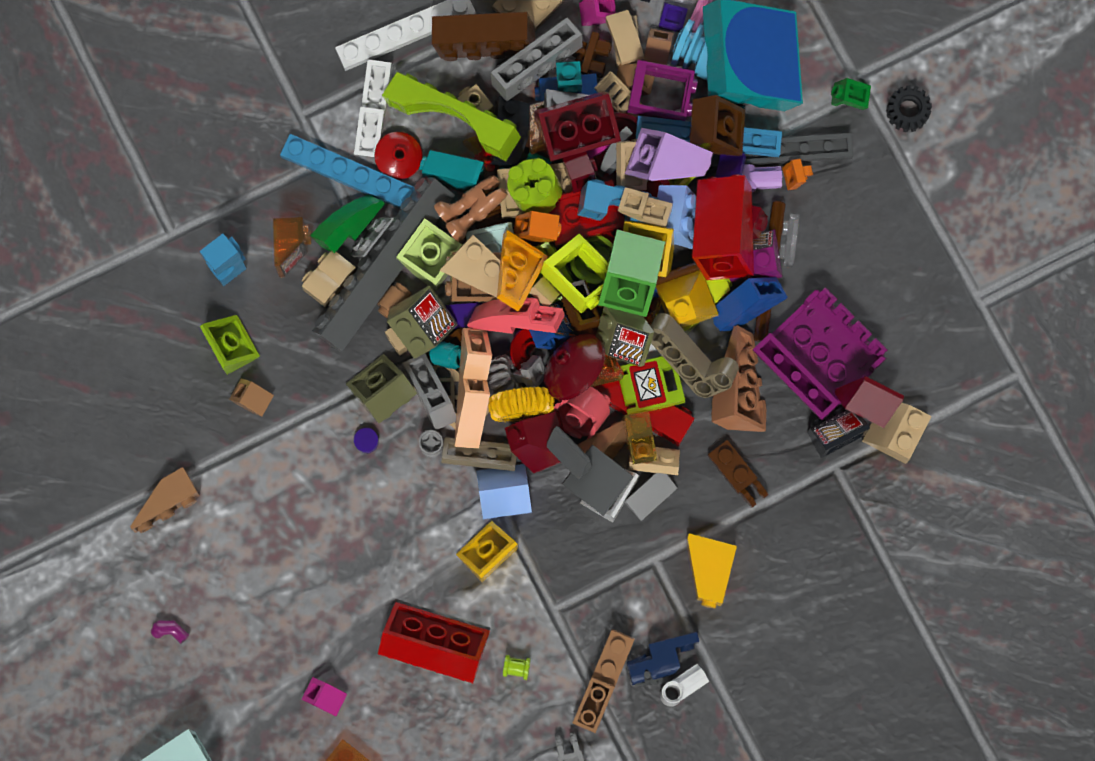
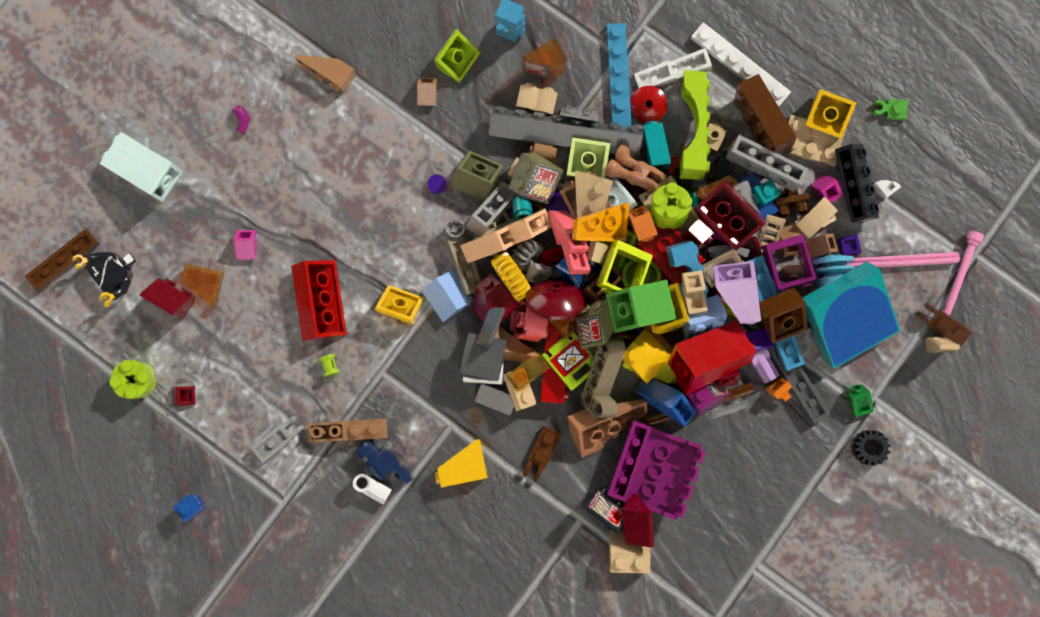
camera: 65 degrees right, 5 degrees up
(346, 222) = (582, 92): green slope -> none
(671, 92) = (793, 271): none -> tan plate

